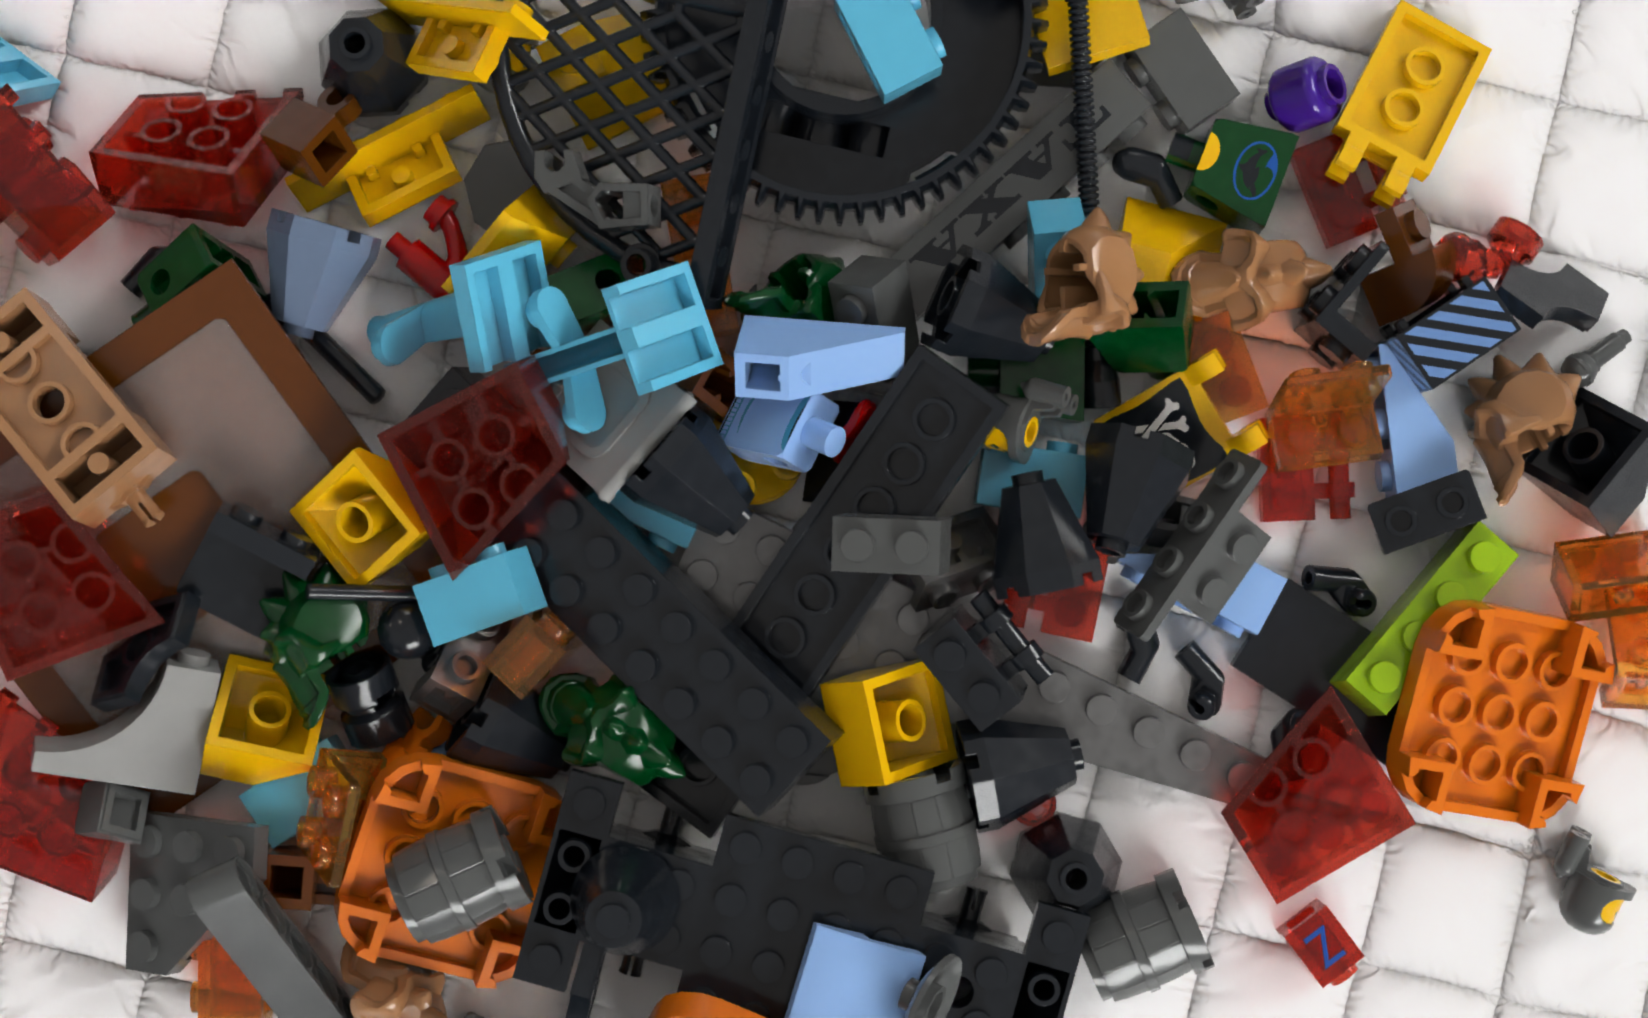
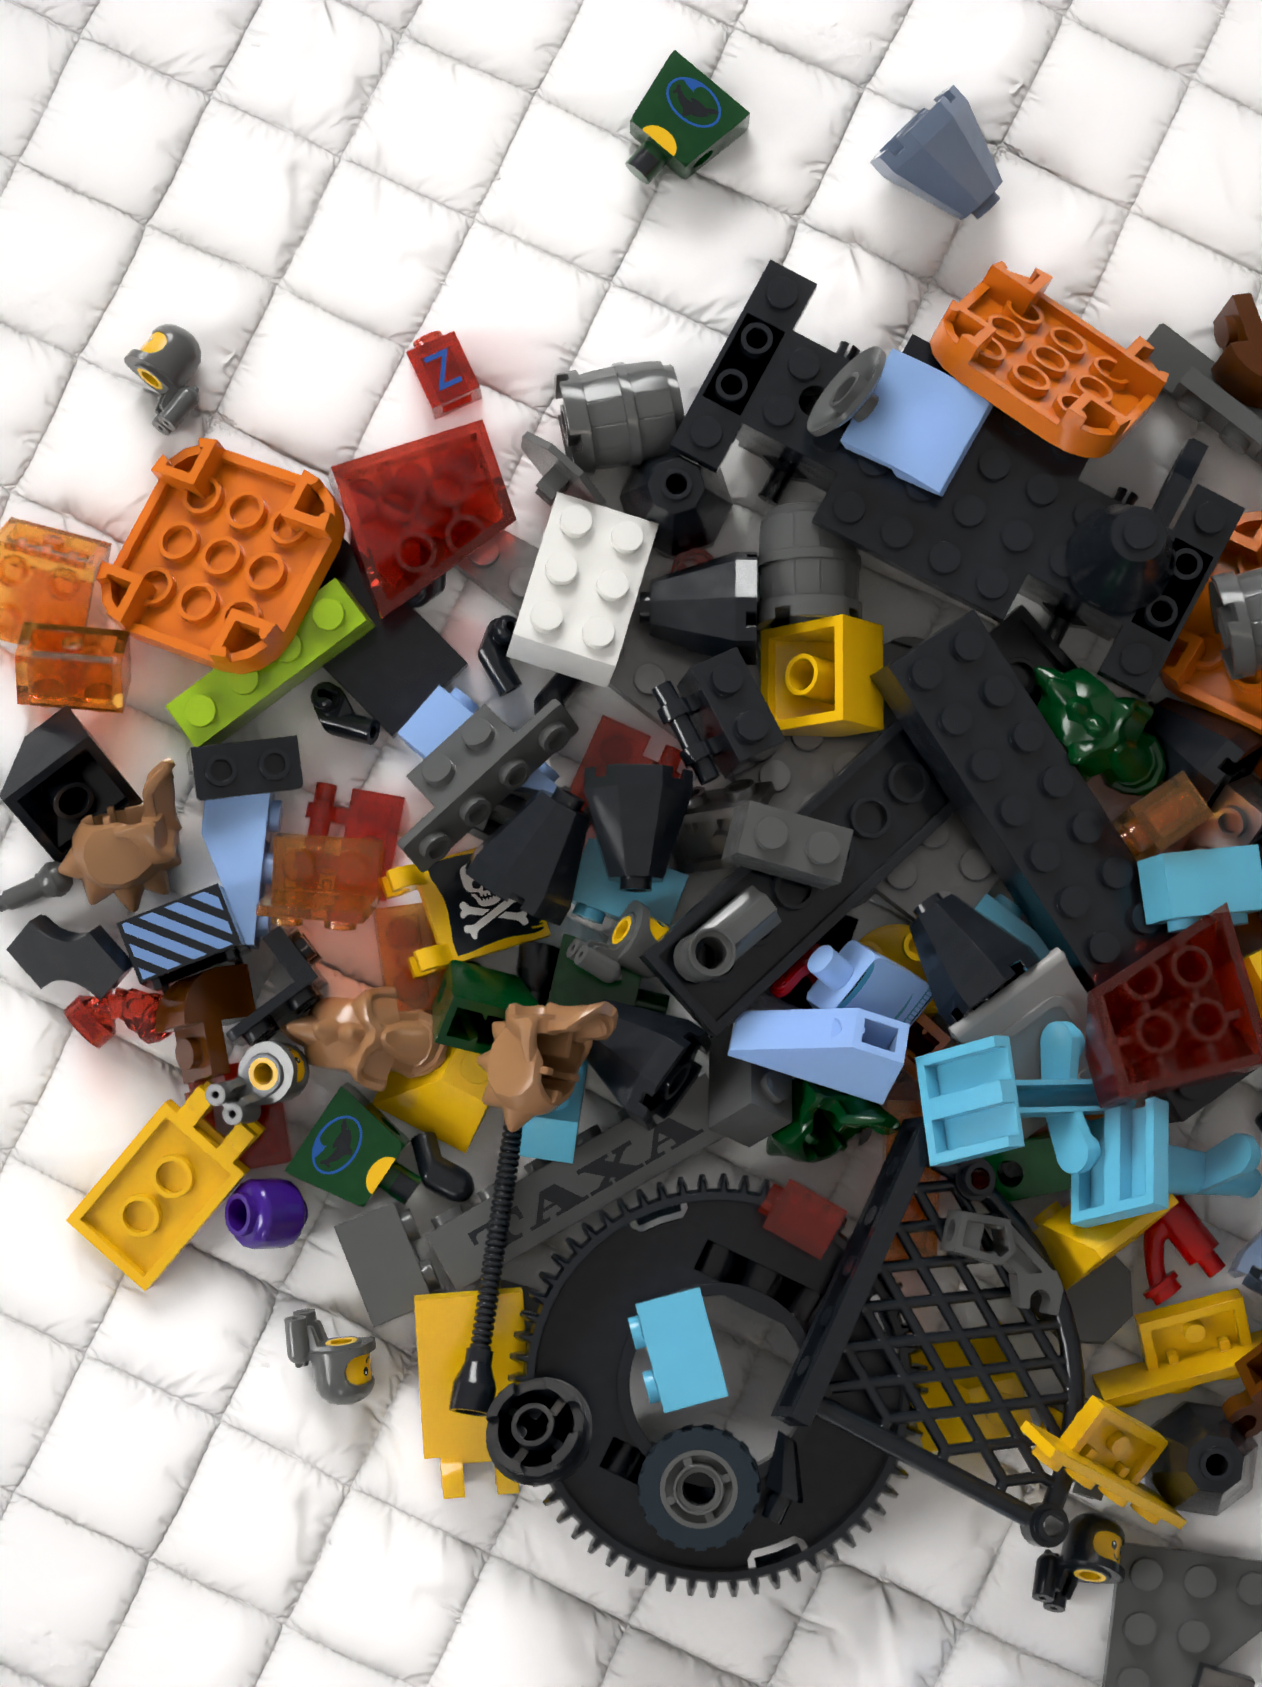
camera: 170 degrees left, 5 degrees down
(800, 186) = (801, 1217): none -> clear red brick
(928, 444) = (727, 934): none -> dark grey piece
(1141, 757) = (582, 590): none -> white brick
(1186, 864) = (558, 472): none -> dark grey piece
(1339, 218) = (266, 1076): none -> dark grey piece

